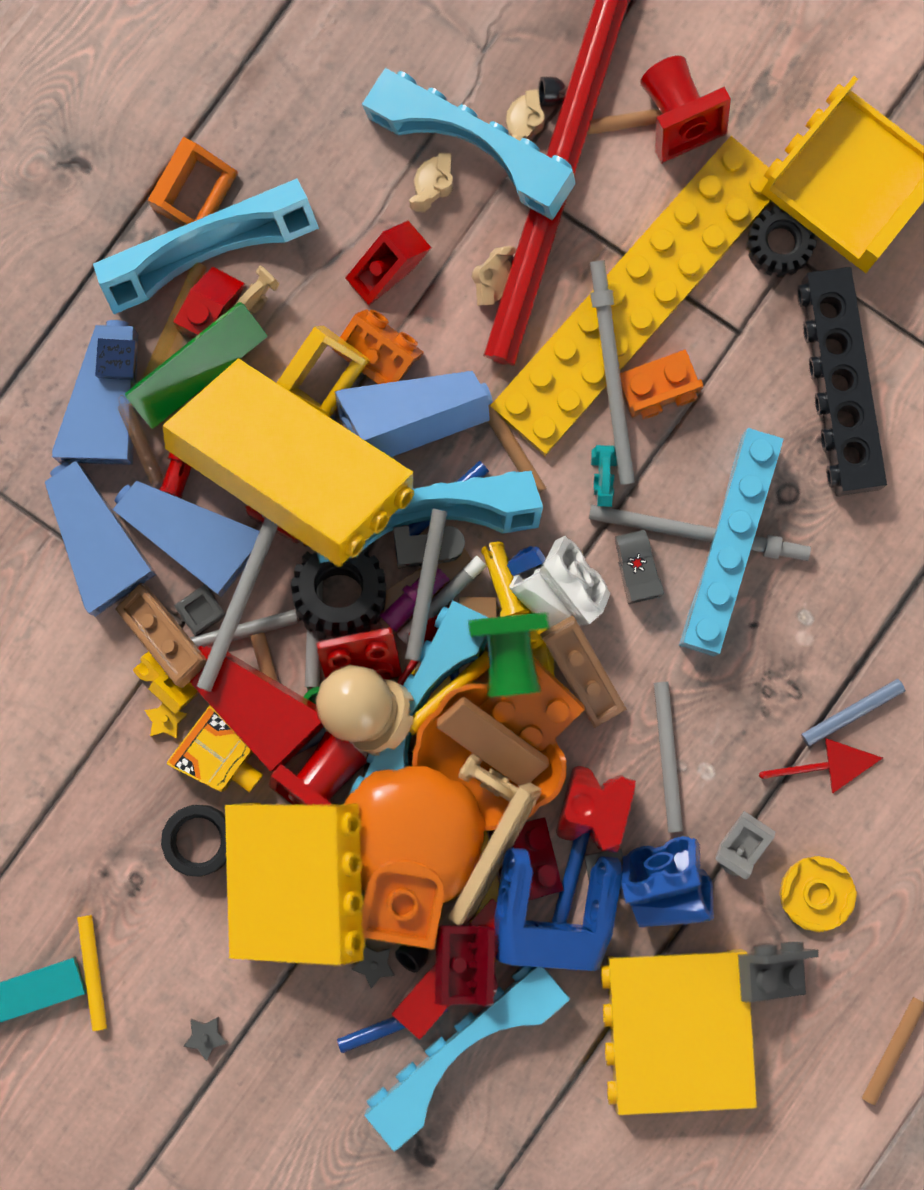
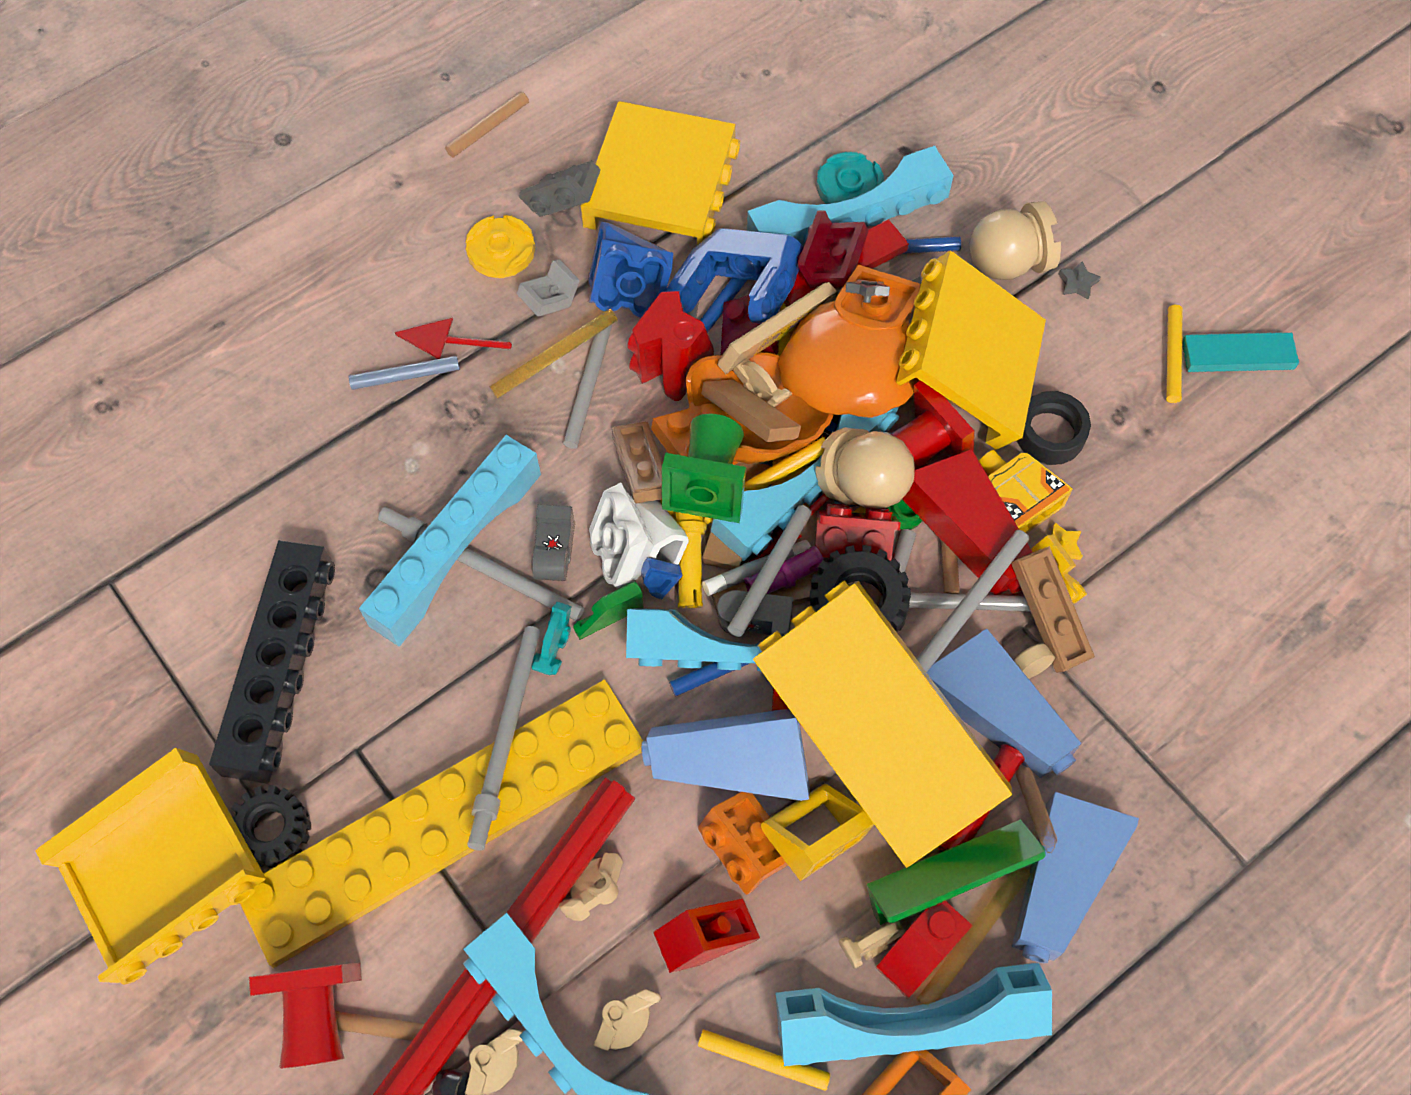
camera: 160 degrees left, 20 degrees down
(97, 544) = (1102, 711): medium blue slope -> none
(116, 359) = (1047, 901): dark blue tile -> none
(169, 584) = (1034, 660): none -> tan tile
(200, 610) = (1008, 630): dark grey tile -> none
(285, 1043) = (1015, 241): none -> tan tile
(320, 185) = (763, 1059): none -> yellow bar
(413, 905) = (868, 289): none -> dark grey piece
(475, 1093) = (847, 177): none -> teal tile
(512, 447) = (634, 692): medium nougat bar -> none
(563, 519) = (610, 609): none -> green tile
(660, 384) = (459, 713): orange bracket -> none
(712, 776) = (553, 353): none -> clear yellow bar

